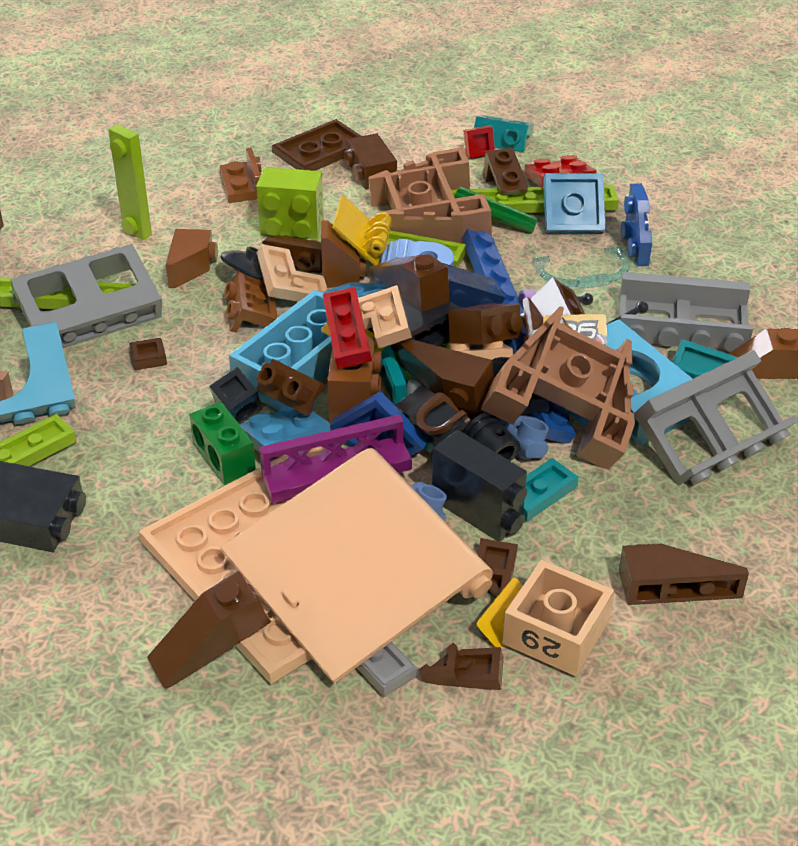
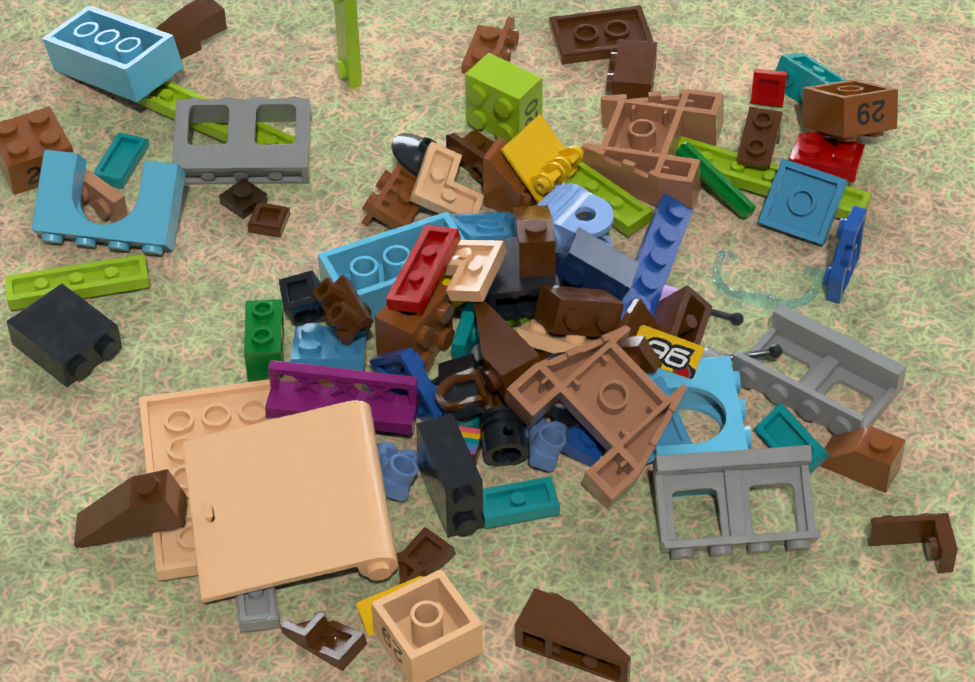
camera: 30 degrees right, 5 degrees up
(112, 345) = (242, 198): none -> dark brown plate
(190, 255) = (372, 125): dark orange slope -> none
(558, 133) = (850, 109): none -> dark orange brick

